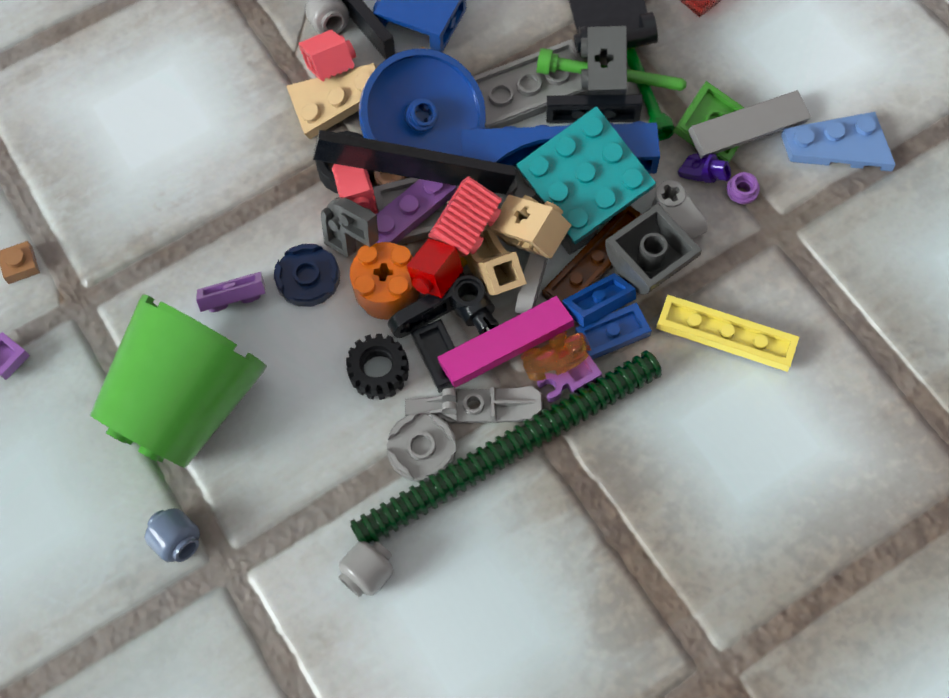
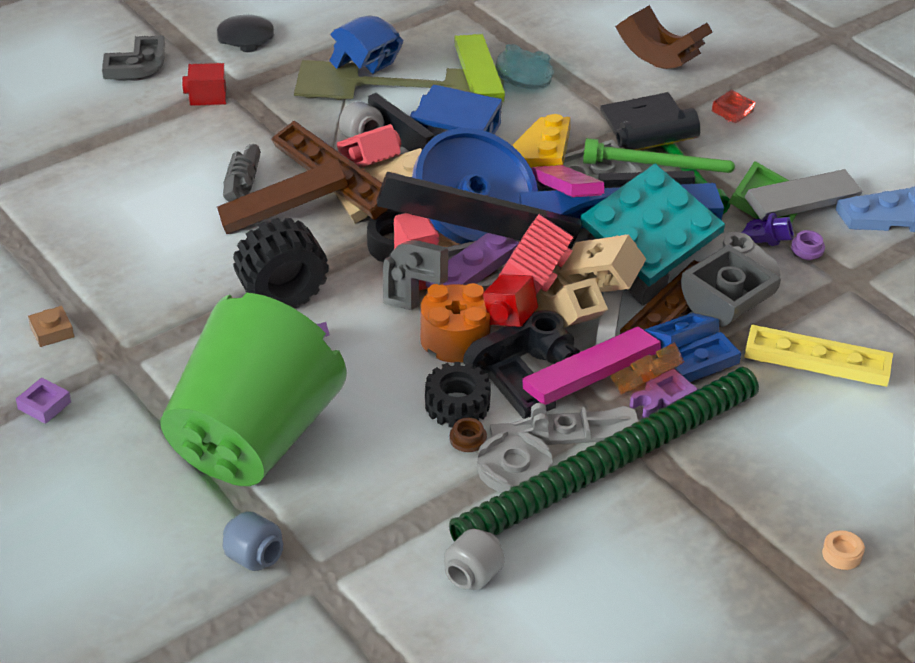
camera: 10 degrees left, 25 degrees down
(205, 79) = (241, 173): none -> dark grey hinge
(224, 211) = (281, 262): none -> black tyre
(239, 113) = (282, 196): none -> reddish brown tile
(290, 76) = (312, 152): none -> reddish brown tile
(307, 275) = (368, 327): dark blue tile -> none
(381, 406) = (467, 435): none -> reddish brown plate
(500, 46) = (545, 141): none -> yellow wing
(511, 115) = (568, 181): none -> dark pink tile
(606, 43) = (653, 139): dark grey brick -> none
(708, 567) = (843, 550): none -> light nougat tile

